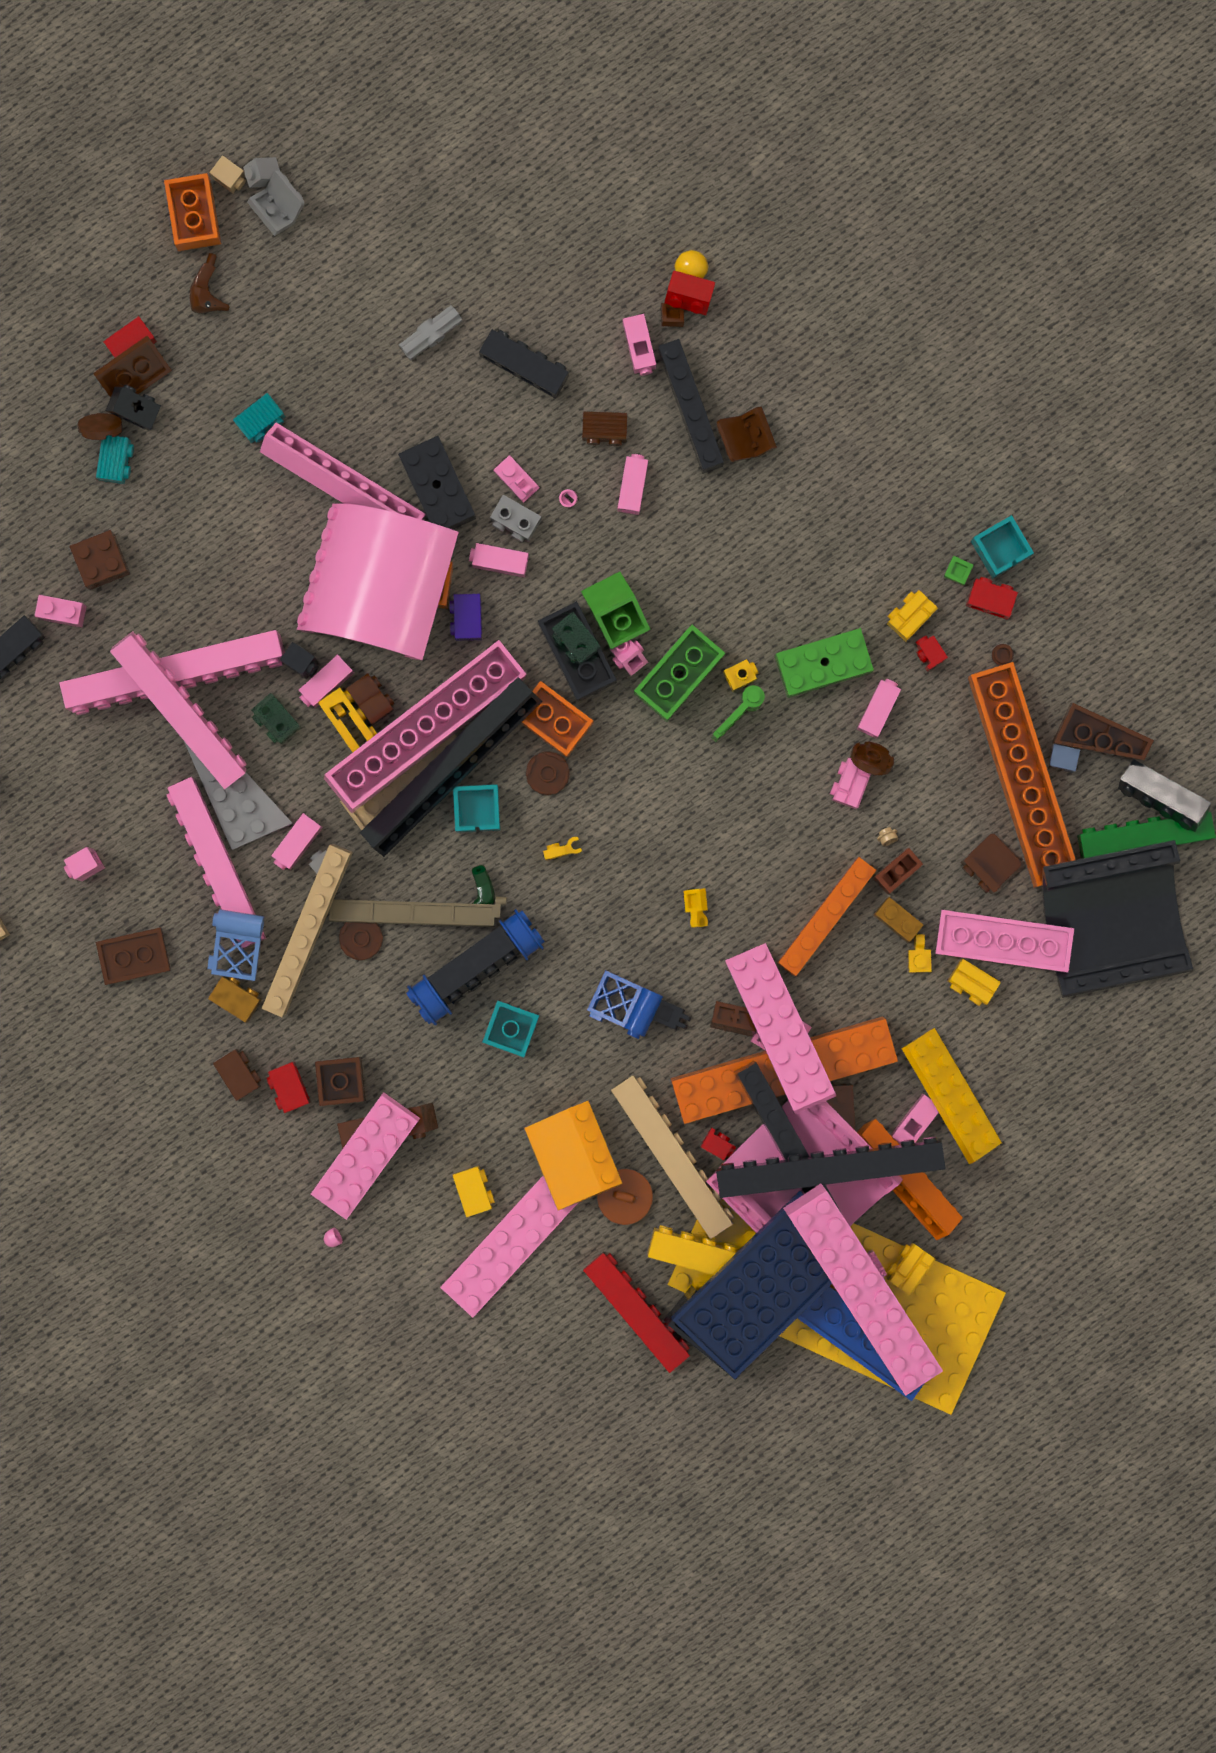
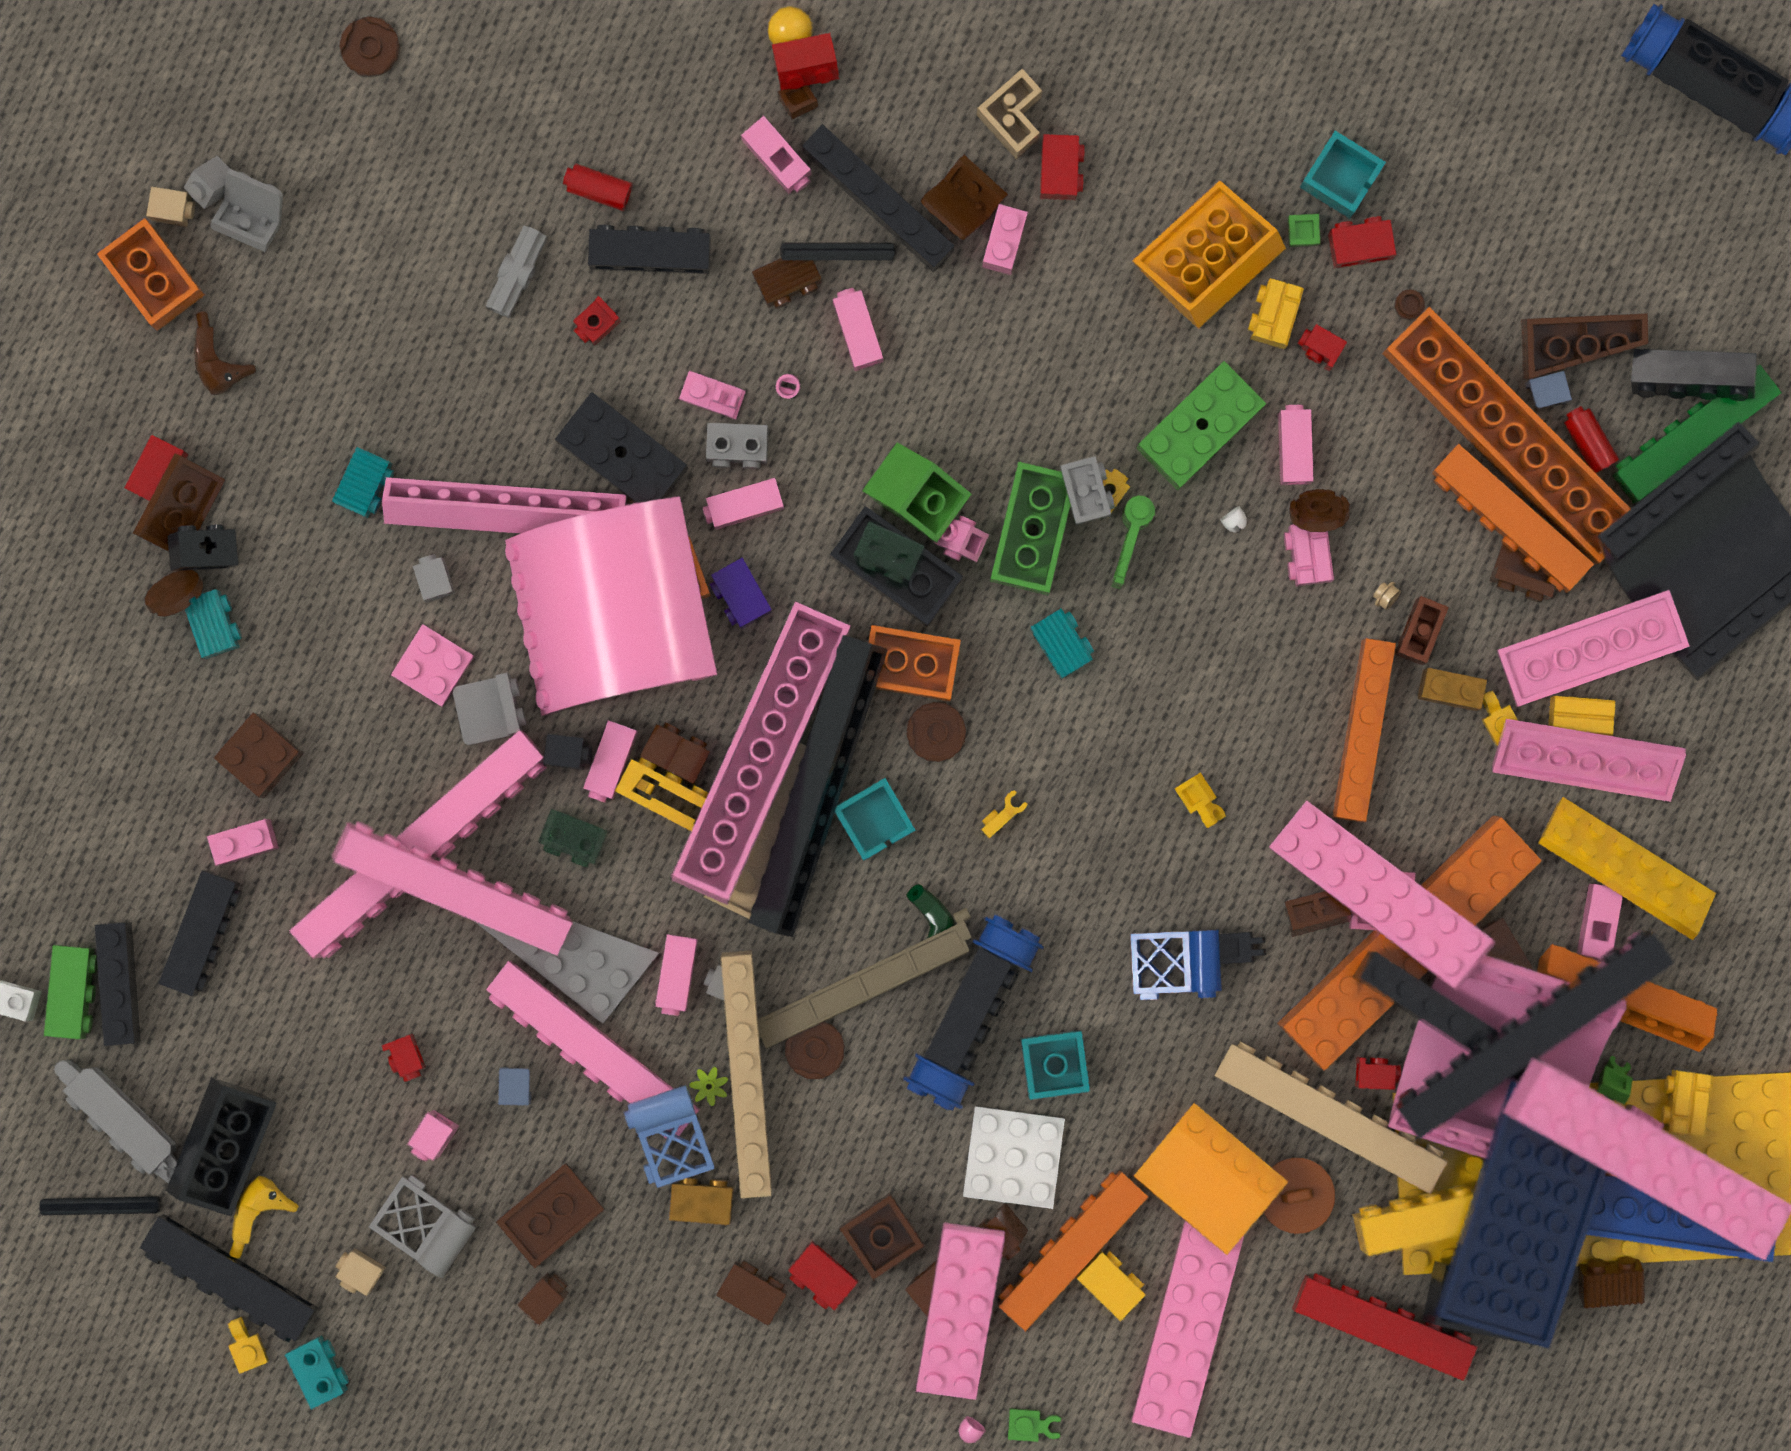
camera: 30 degrees left, 0 degrees up
(60, 933) = (444, 1239): none -> light grey piece
(92, 805) = (405, 1057): none -> red brick
(100, 1007) = (544, 1298): none -> reddish brown brick
(153, 860) = (514, 1086): none -> sand blue panel
(243, 560) = (432, 665): none -> bright pink plate
(264, 607) = (489, 709): none -> light grey bracket
(273, 504) = (433, 578): none -> light grey brick
(284, 926) = (702, 1086): none -> lime plant
(371, 1253) = (1026, 1425): none -> bright green plate
(412, 144) = (369, 46): none -> reddish brown tile
(453, 1075) = (1013, 1157): none -> white plate
(460, 1155) = (1072, 1250): none -> orange brick
(472, 396) = (607, 322): none -> red brick
(512, 305) = (598, 186): none -> red brick
(645, 426) = (836, 251): none -> black axle
(659, 757) = (1061, 642): none -> teal brick
(725, 665) = (1086, 490): none -> light grey bracket
(759, 475) = (1004, 239): none -> bright pink brick
(799, 1360) = (1611, 1282): none -> reddish brown brick
(802, 393) = (1005, 113): none -> tan brick
(814, 736) = (1234, 520): none -> white hinge
(820, 447) = (1060, 167): none -> red brick
(870, 1230) = (1615, 1082): none -> bright green plate
(888, 554) = (1210, 253): none -> light orange slope
(963, 1012) = (1588, 760): none -> bright pink plate
(995, 828) = (1512, 519): none -> orange brick
(1074, 804) = (1590, 439): none -> red brick

